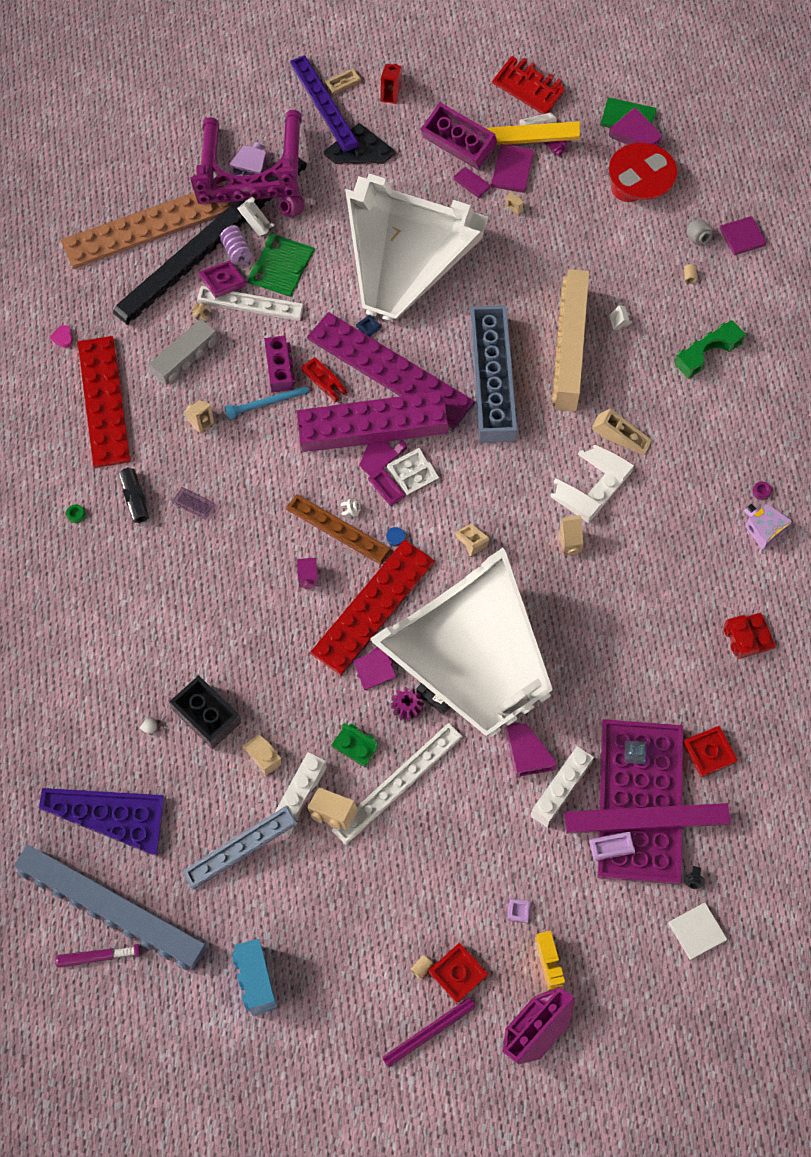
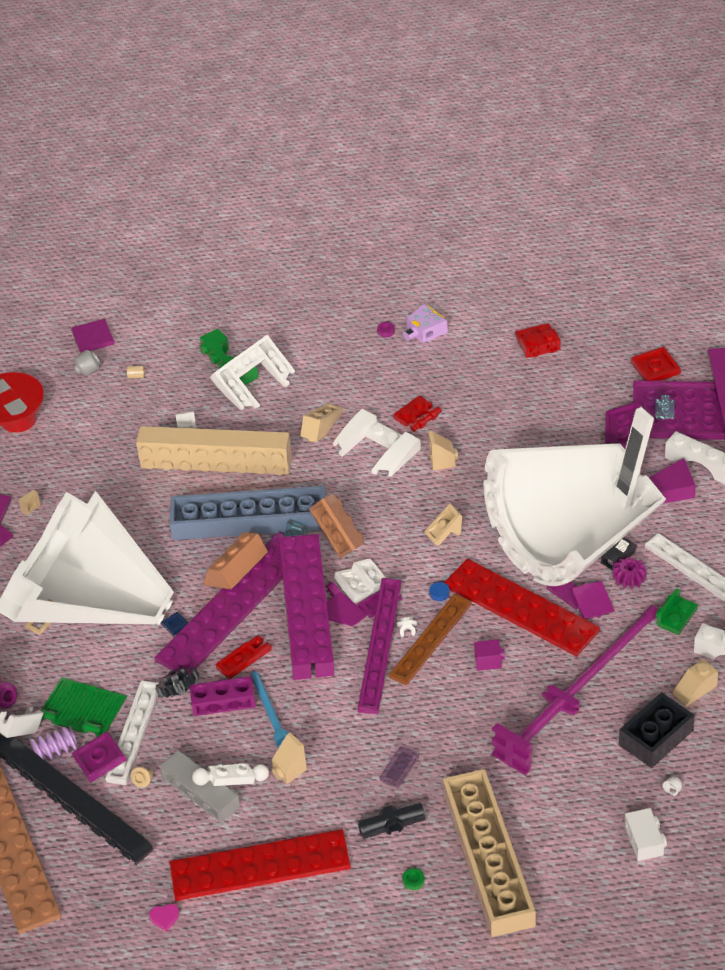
camera: 85 degrees left, 20 degrees down
(86, 567) = (489, 853): none -> tan brick
(94, 696) = (645, 834): none -> white brick
(186, 370) = (230, 774): none -> white plate
(247, 631) = (516, 749): none -> magenta piece
(292, 327) = (177, 682): none -> black gear
(330, 486) = (379, 646): none -> magenta tile
(427, 364) = (236, 561): none -> nougat slope
(461, 441) = (336, 525): none -> nougat slope
(467, 411) = (295, 528): none -> clear light blue tile
(610, 711) = (619, 423): none -> magenta tile
(638, 514) = (414, 410): none -> red plate
(671, 344) = (261, 352): none -> white wedge

